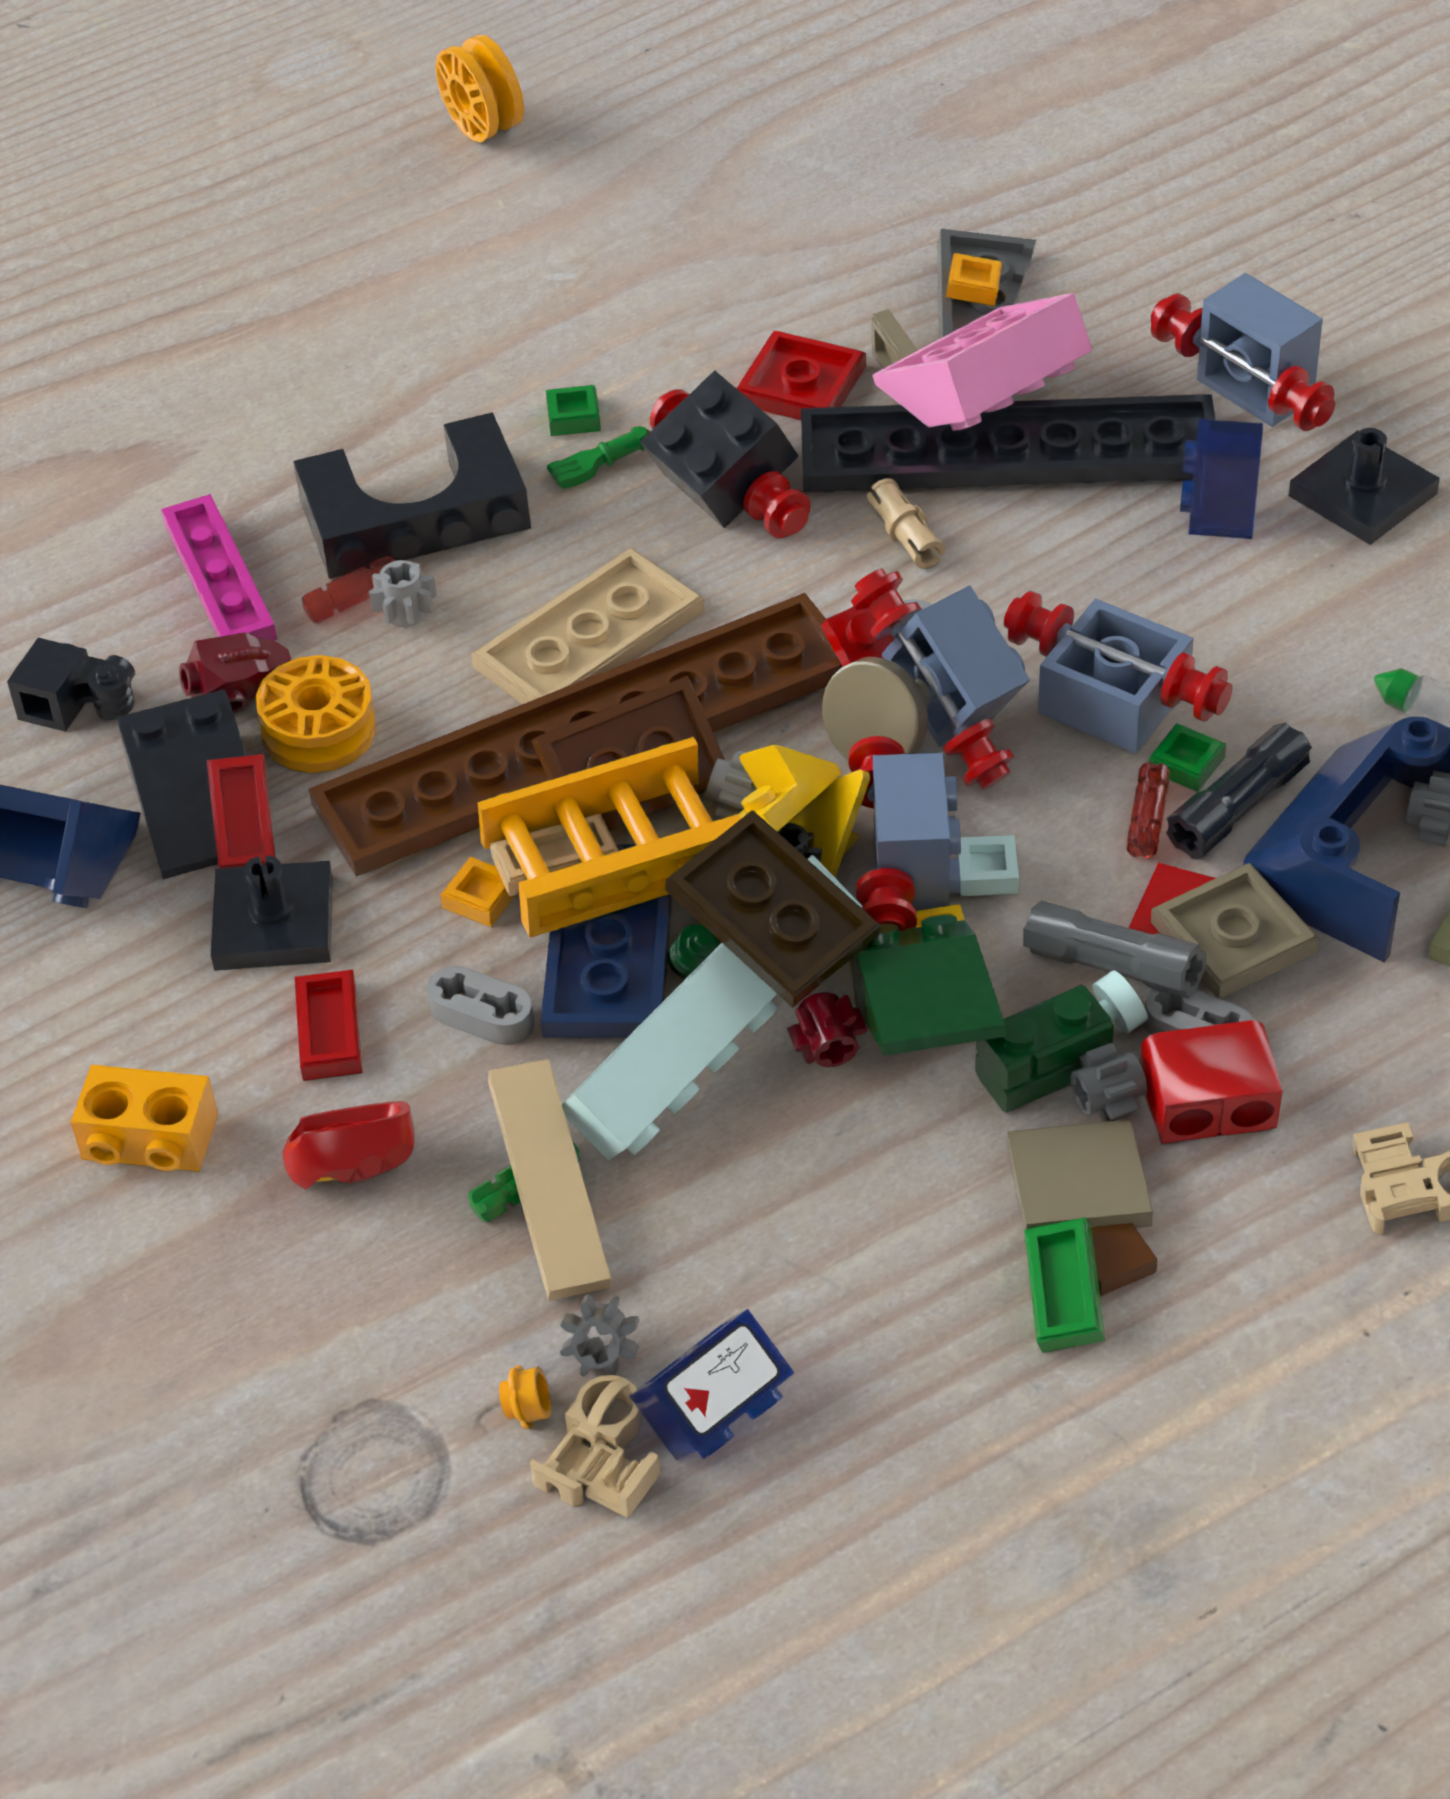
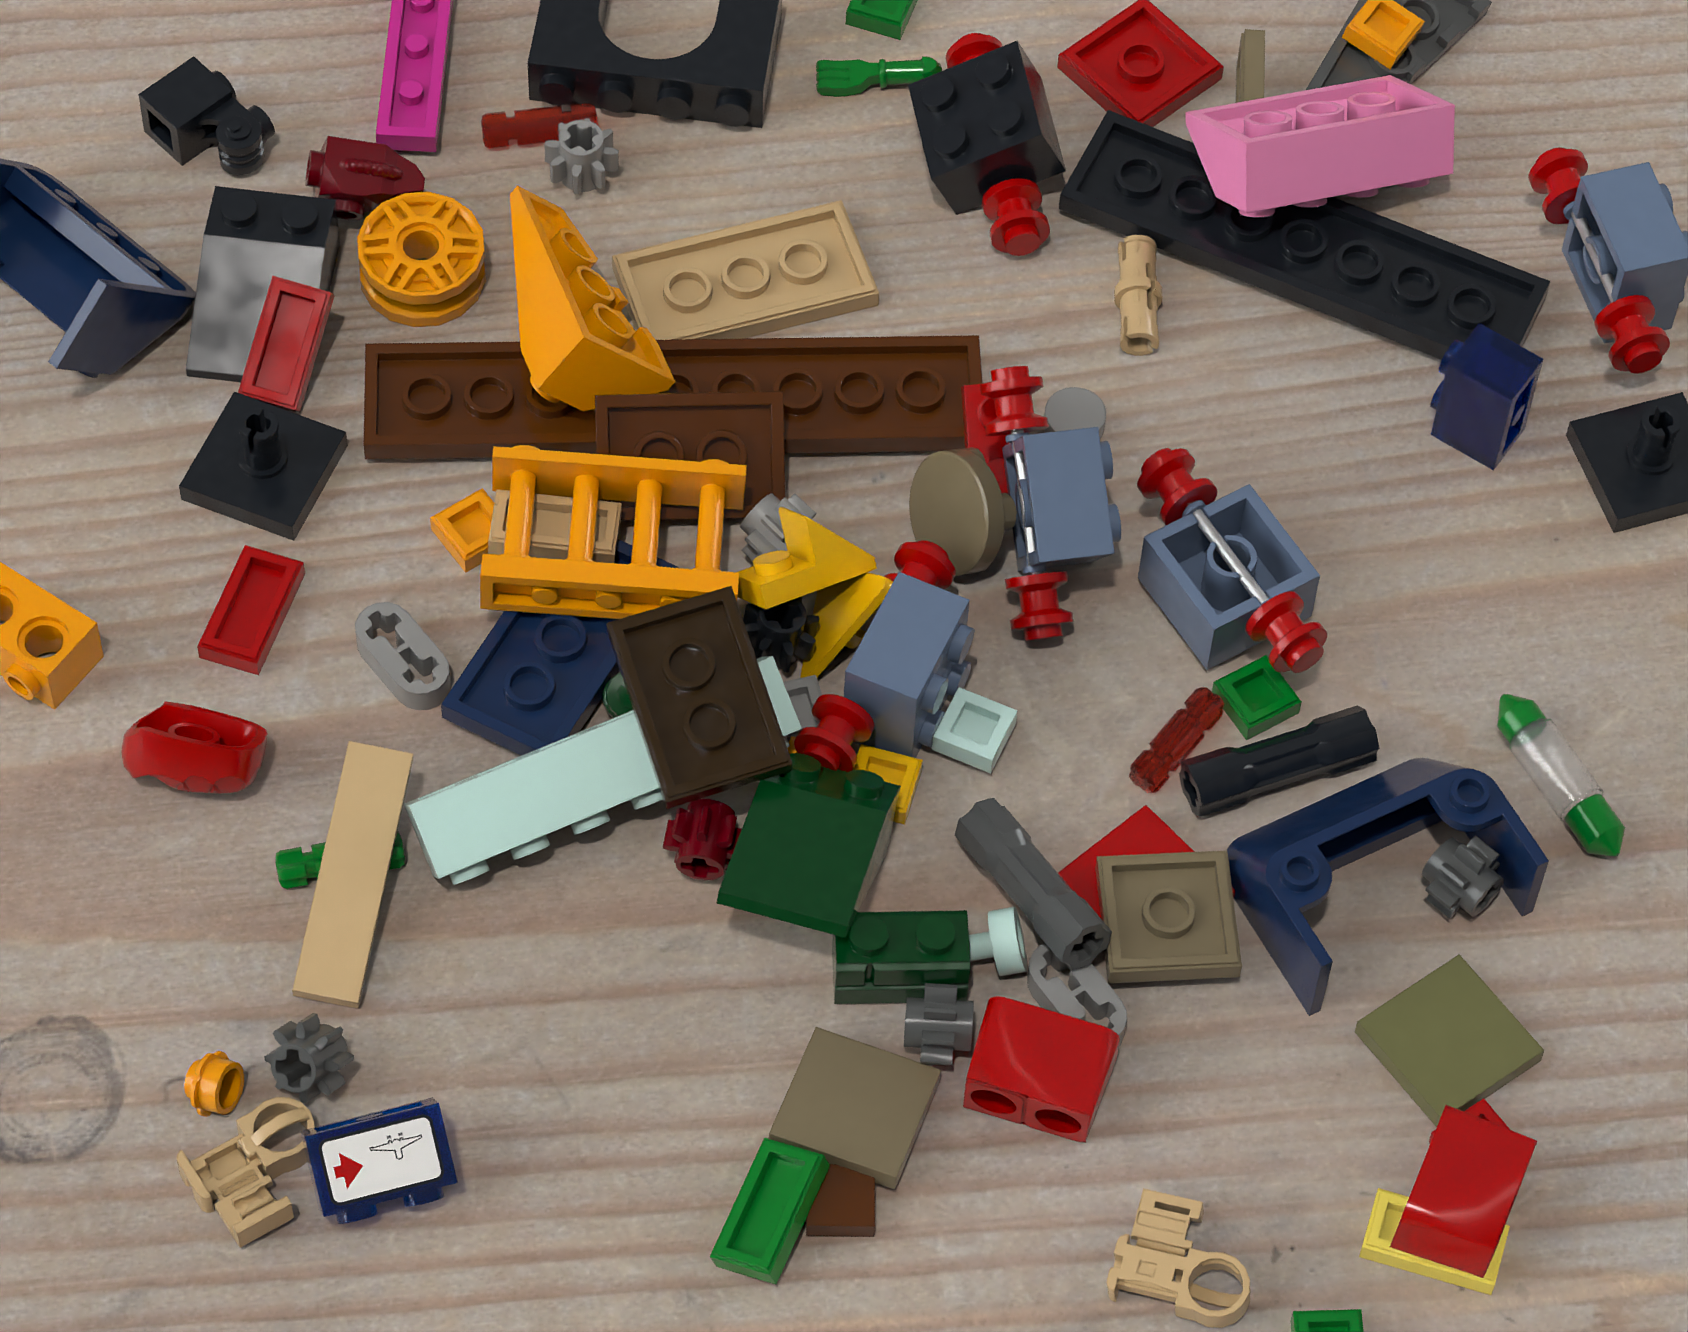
camera: 20 degrees right, 10 degrees up
(475, 699) = (571, 316): none -> light orange wedge

